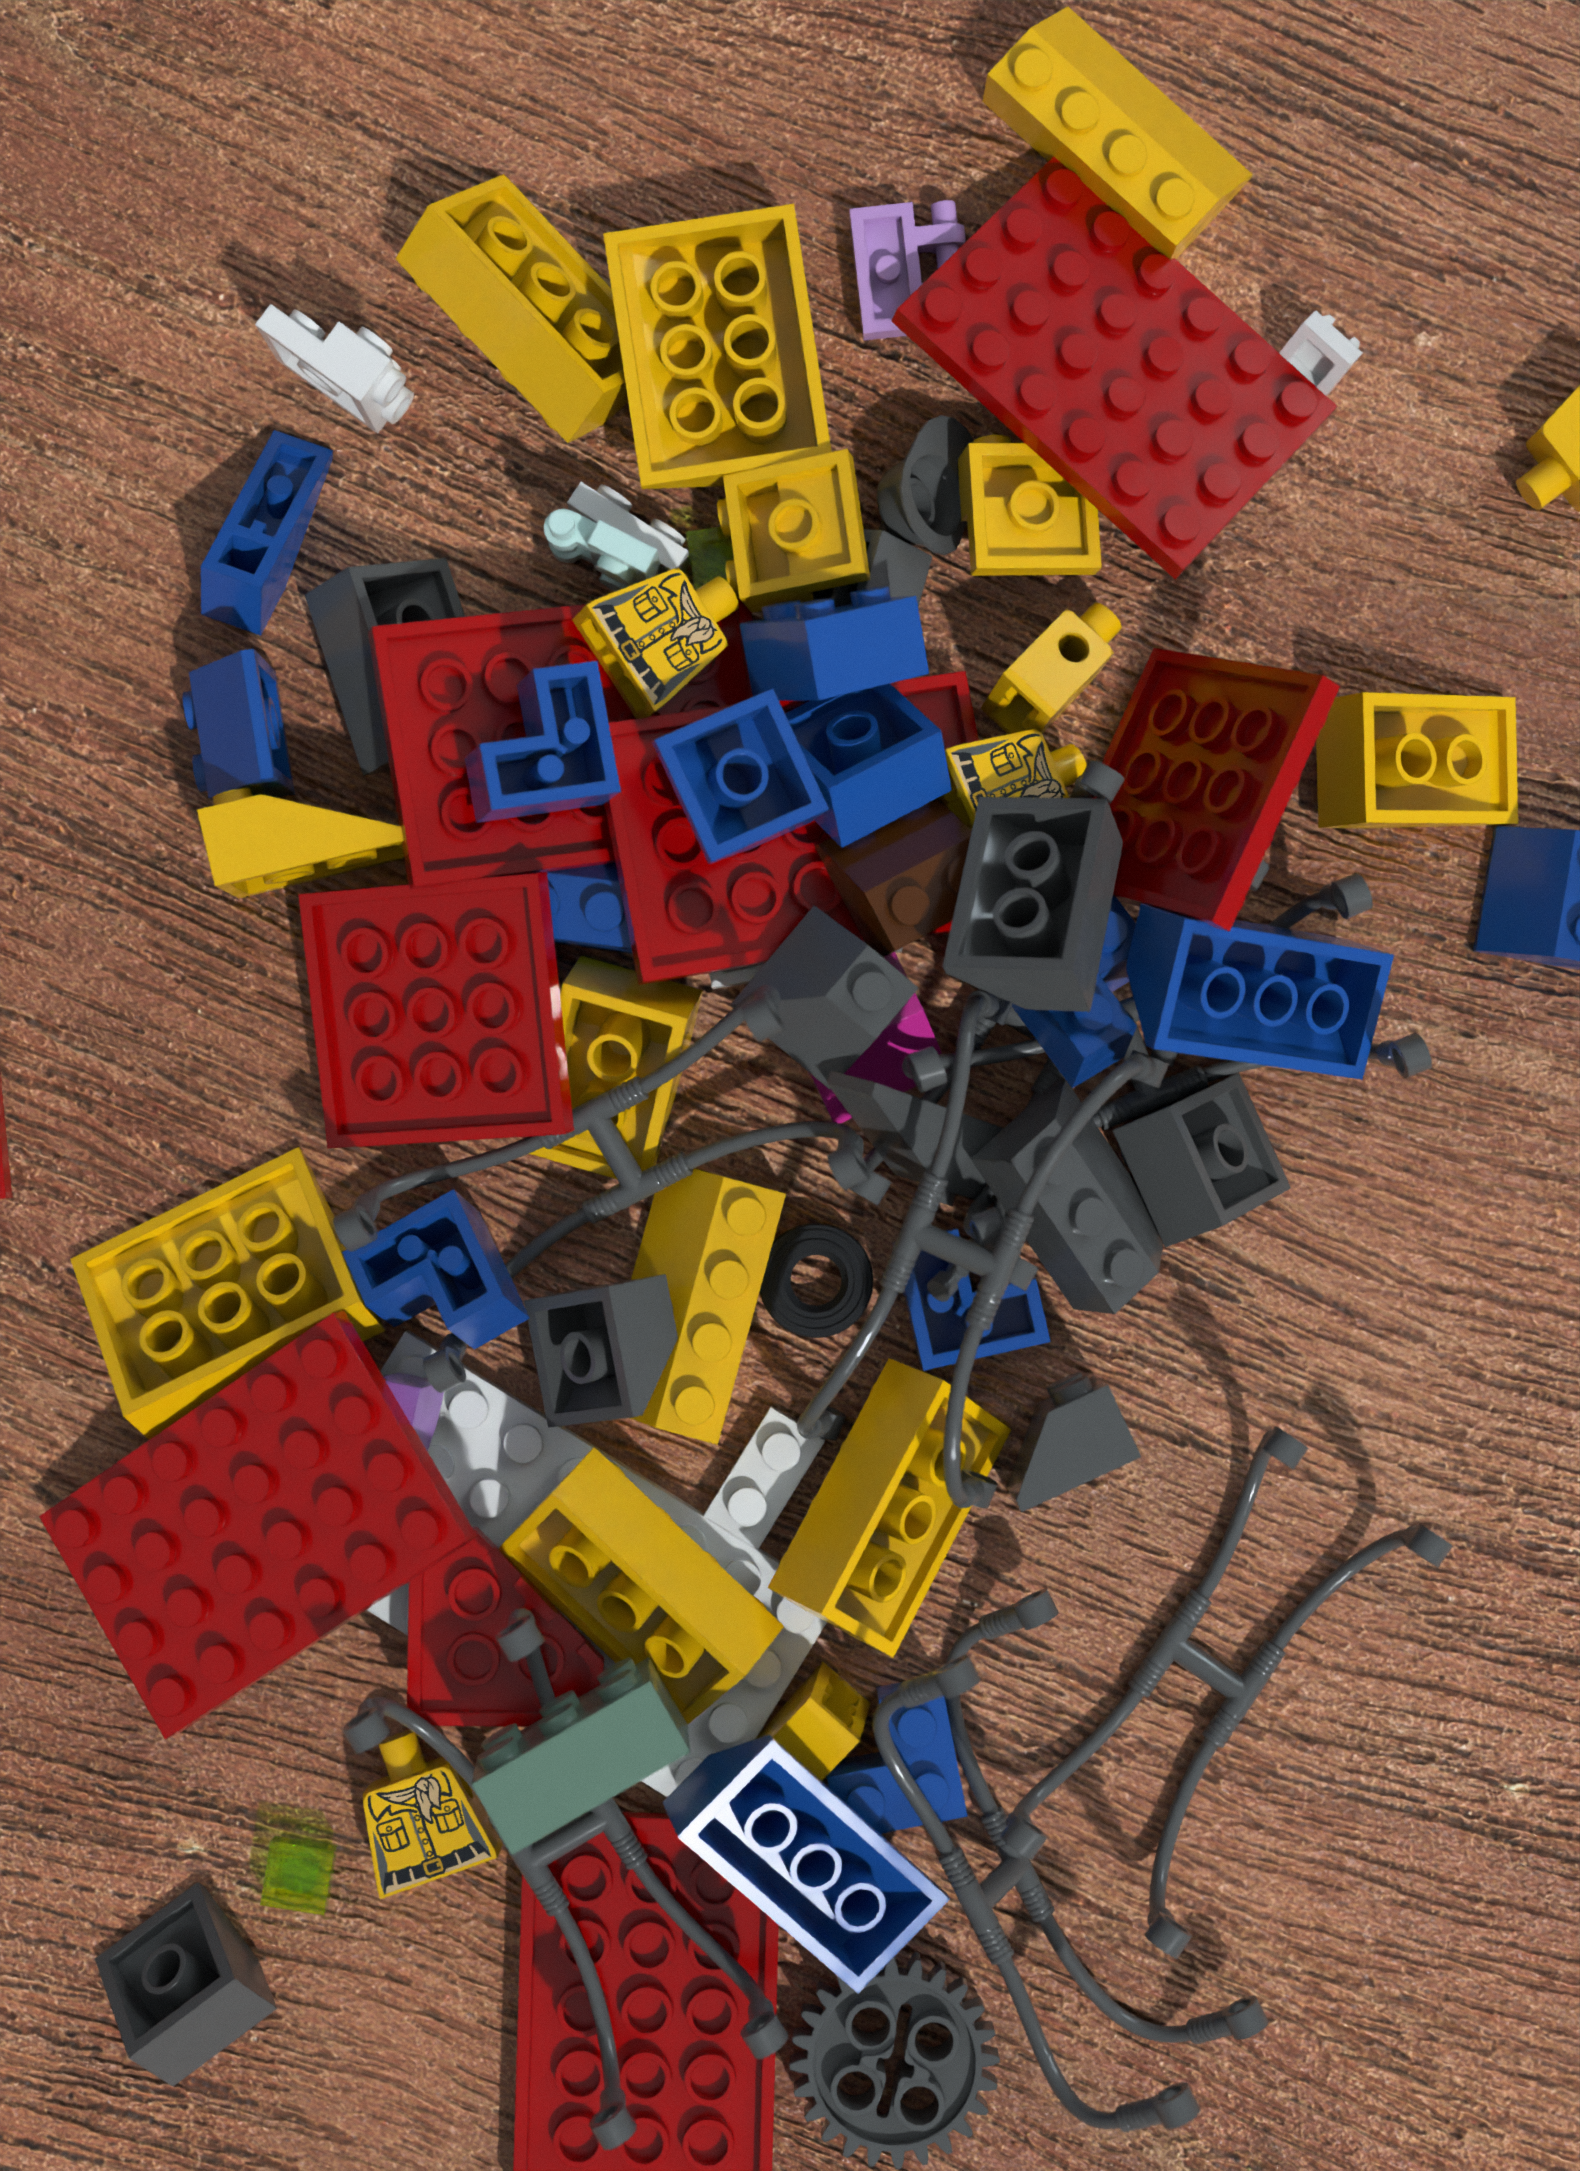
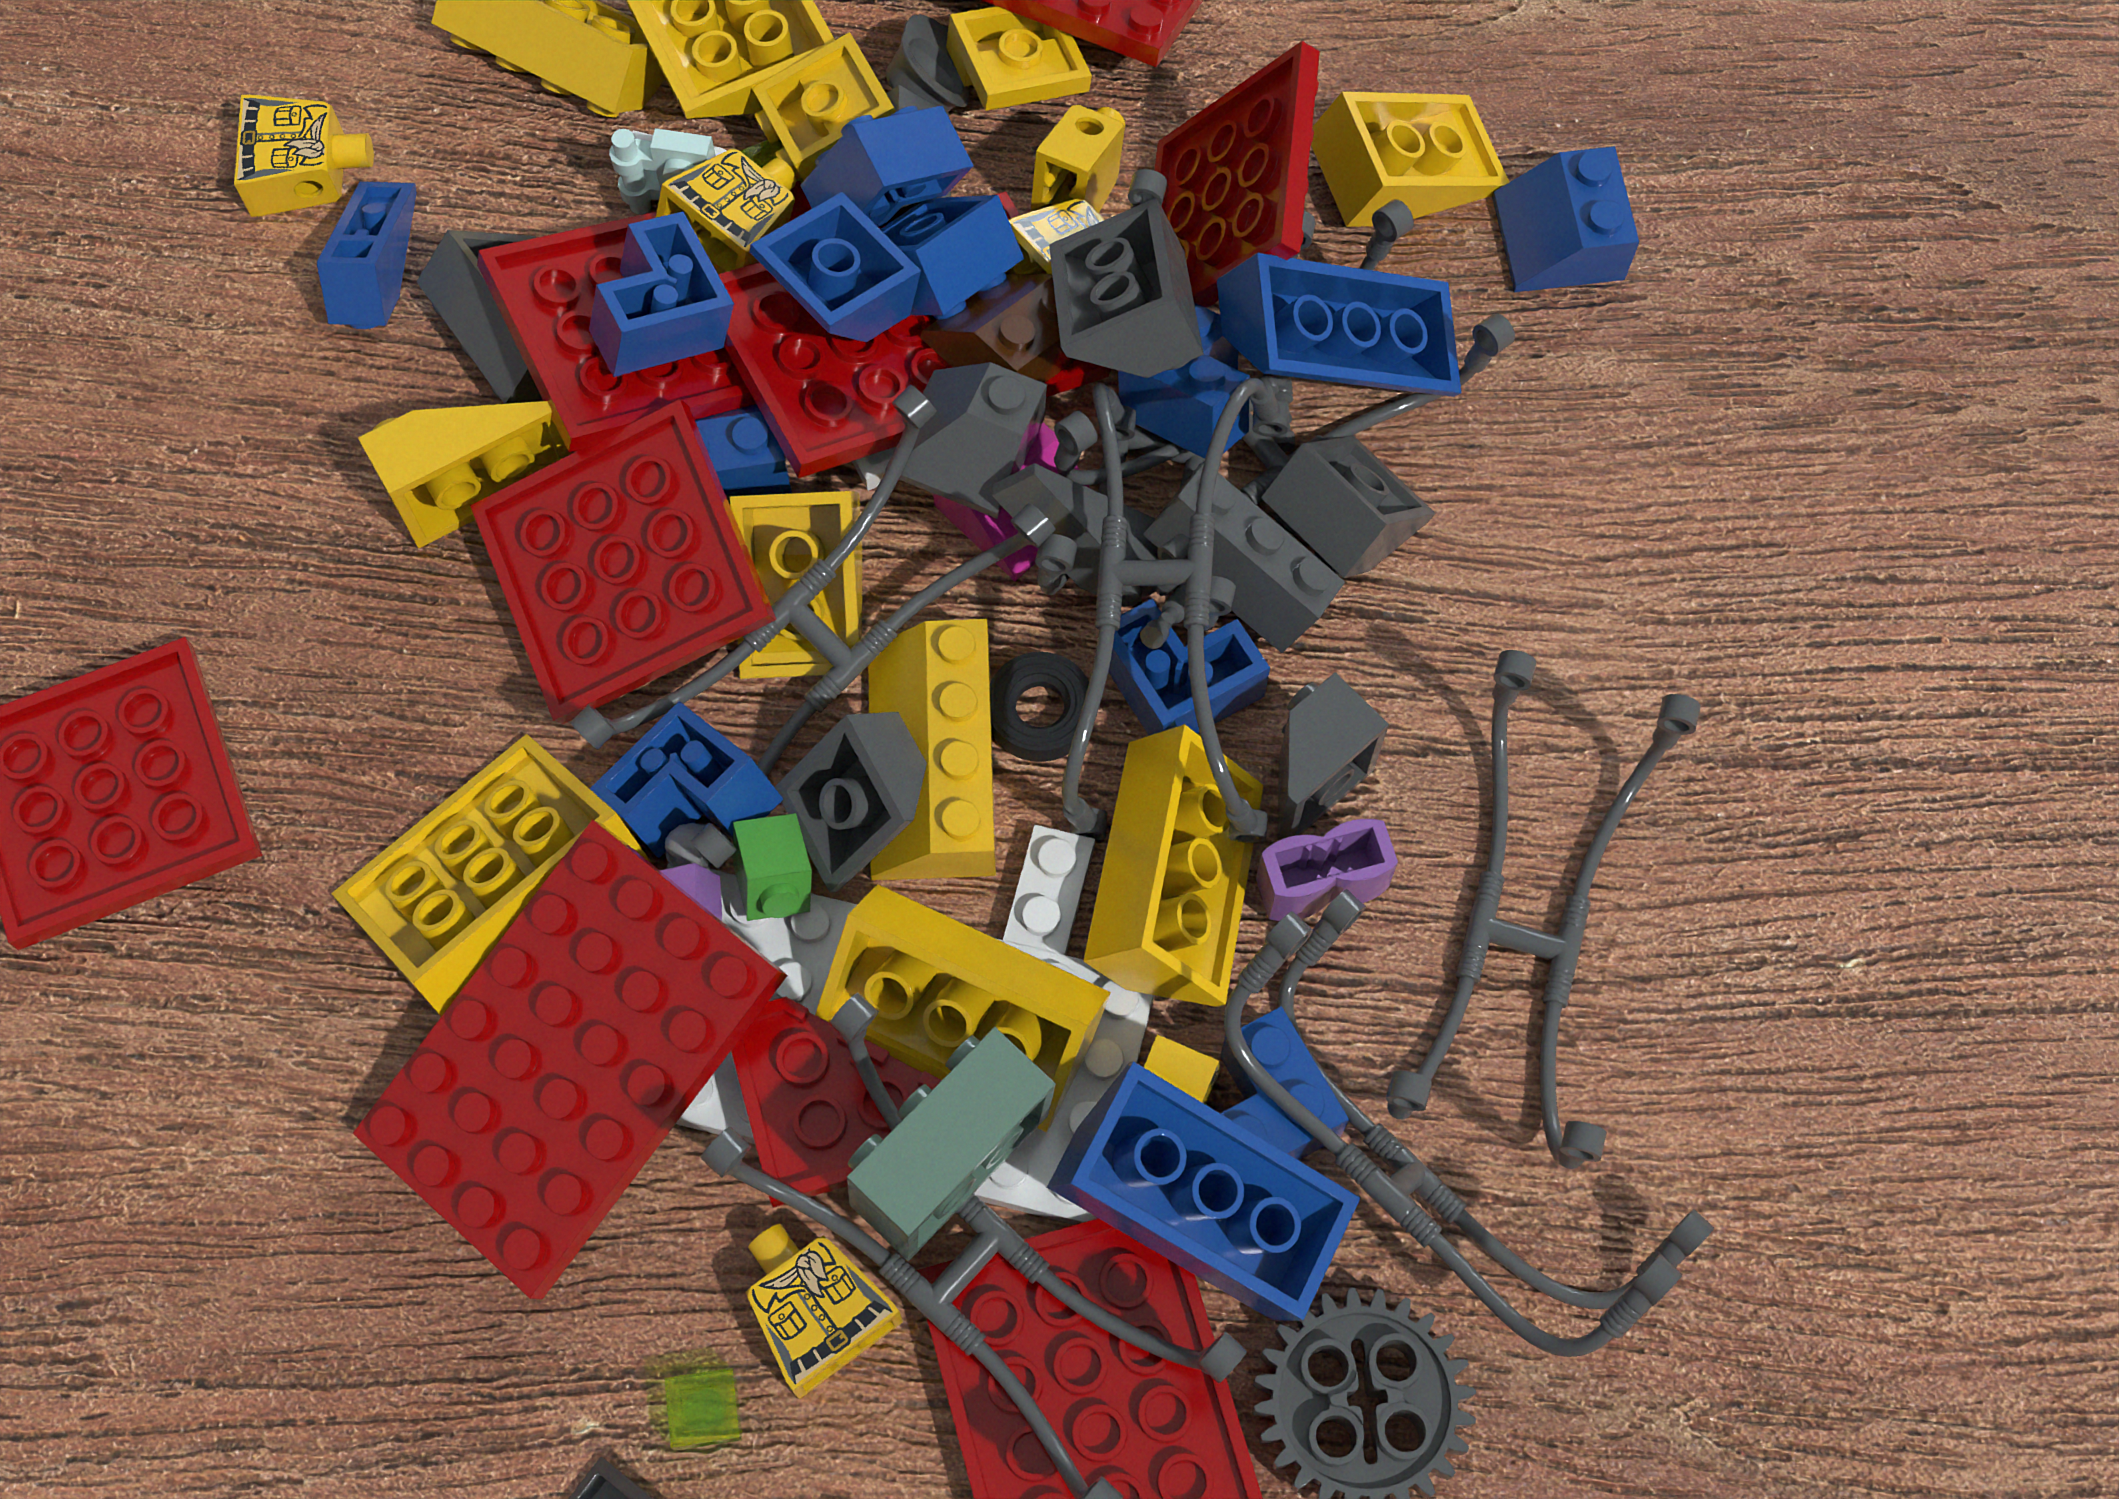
camera: 15 degrees left, 20 degrees down
(208, 381) = (293, 154): none -> yellow torso
(238, 727) = (371, 376): blue slope -> none
(344, 367) = (400, 103): white plate -> none
(423, 1334) = (681, 850): none -> light grey hinge
(498, 1390) = (772, 867): none -> bright green brick
(1056, 1554) = (1312, 870): none -> medium lavender brick

